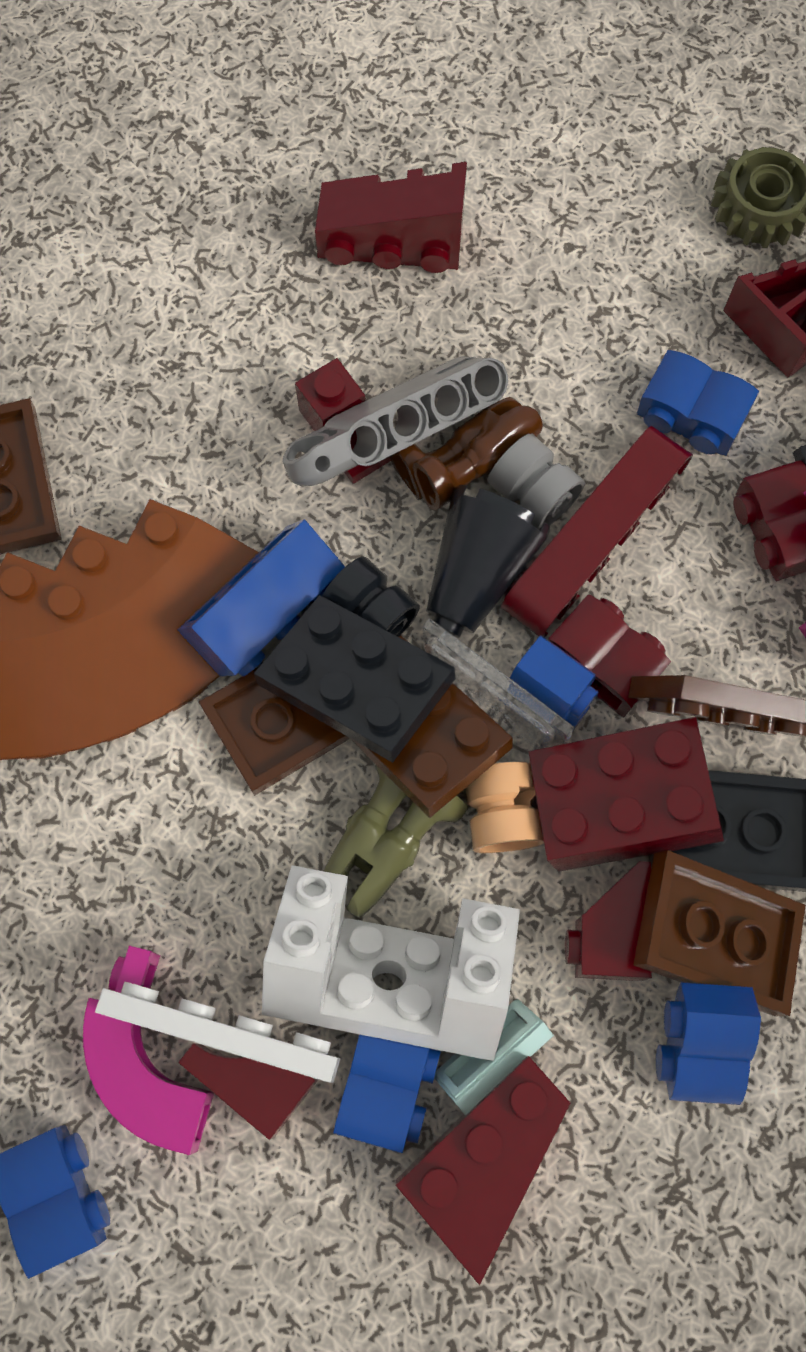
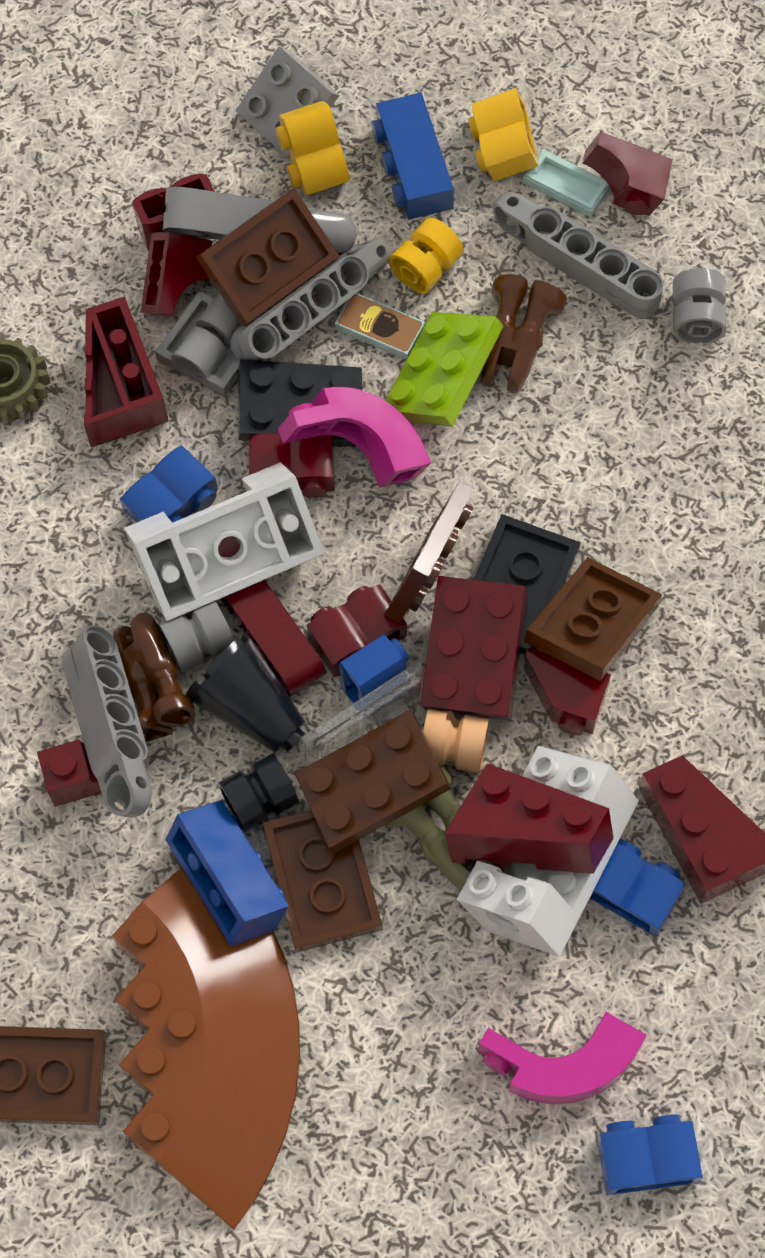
camera: 70 degrees left, 5 degrees down
(196, 1024) = (556, 997): white plate -> none
(253, 1089) = (611, 977): dark red arch -> none
(356, 677) = (323, 811): black plate -> none
(406, 925) = (528, 823): none -> dark red wedge
(472, 1078) = (646, 824): light aqua tile -> none
(693, 503) = (183, 556): none -> white plate
(709, 1043) = (667, 651): blue brick -> none

